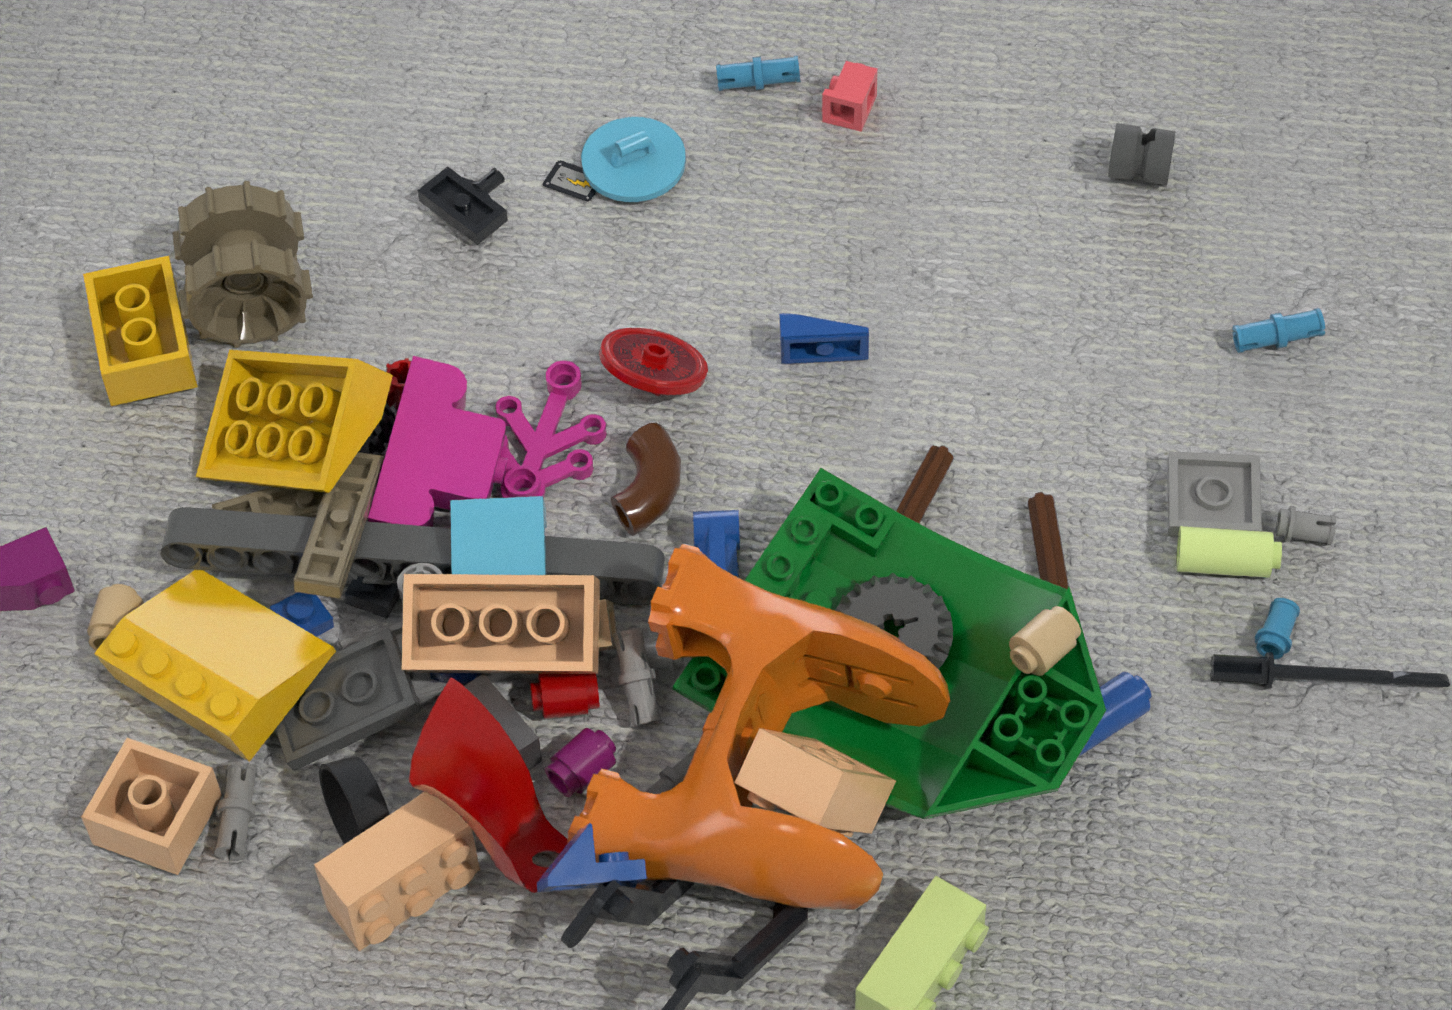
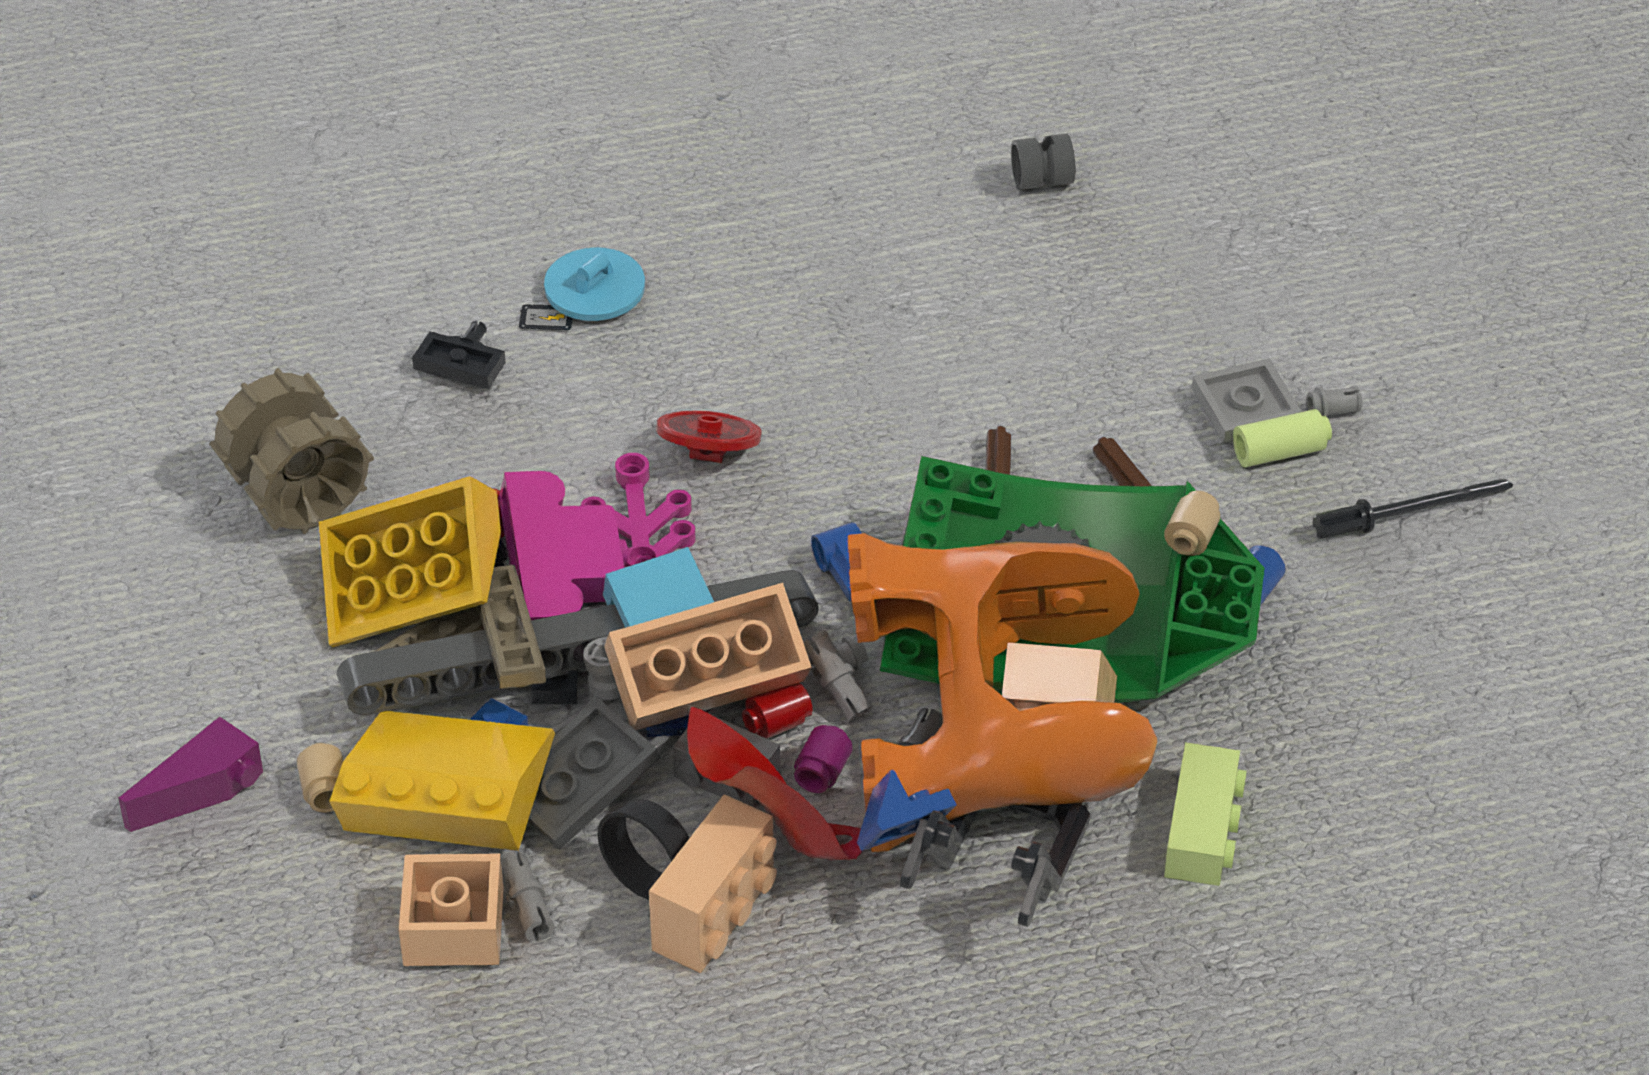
camera: 25 degrees left, 10 degrees down
(139, 331) = (214, 536): yellow brick -> none
(655, 480) = (762, 523): reddish brown cylinder -> none
(758, 73) = (670, 188): dark azure pin -> none
(821, 340) = (845, 376): blue slope -> none
(850, 96) = (764, 184): coral brick -> none
(1277, 629) = (1353, 481): dark azure pin -> none
(1278, 330) = (1229, 264): dark azure pin -> none

